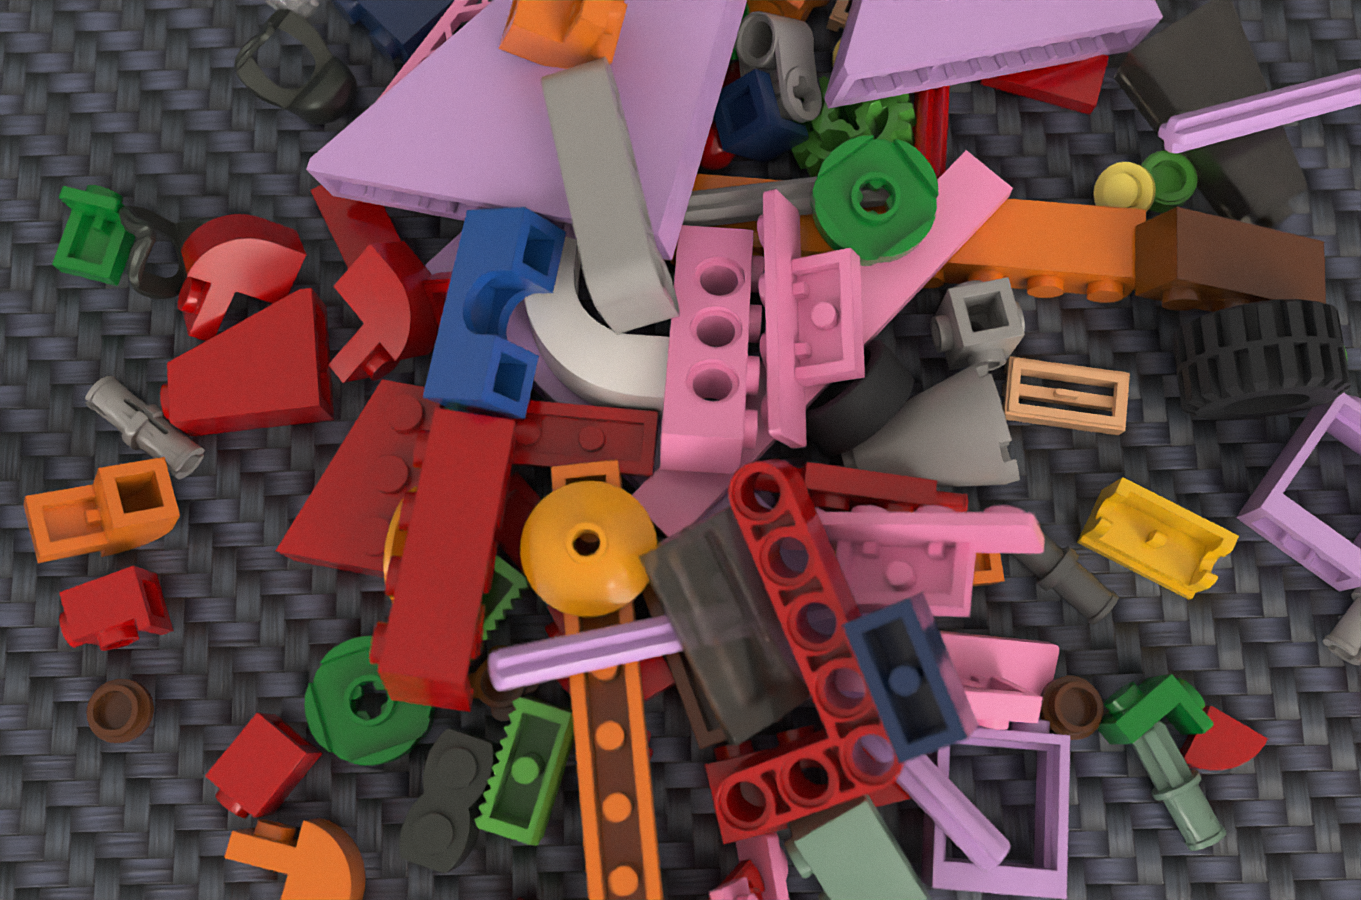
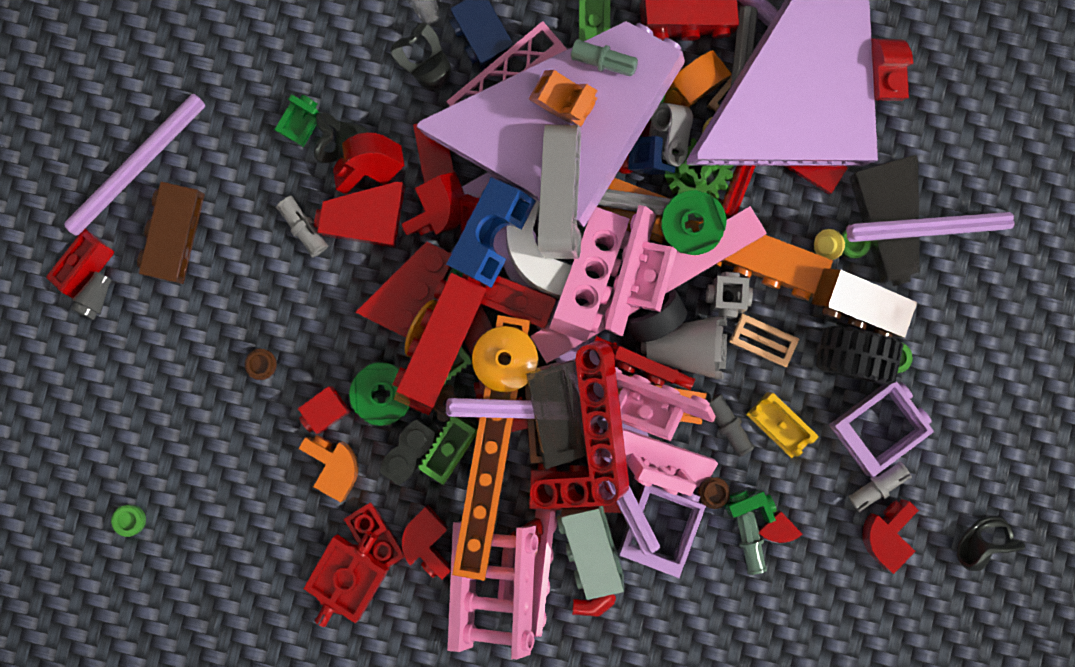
camera: 15 degrees right, 10 degrees up
(114, 609) = (269, 316): red brick -> none
(115, 514) = (276, 267): orange brick -> none
(911, 678) = (633, 461): dark blue brick -> none

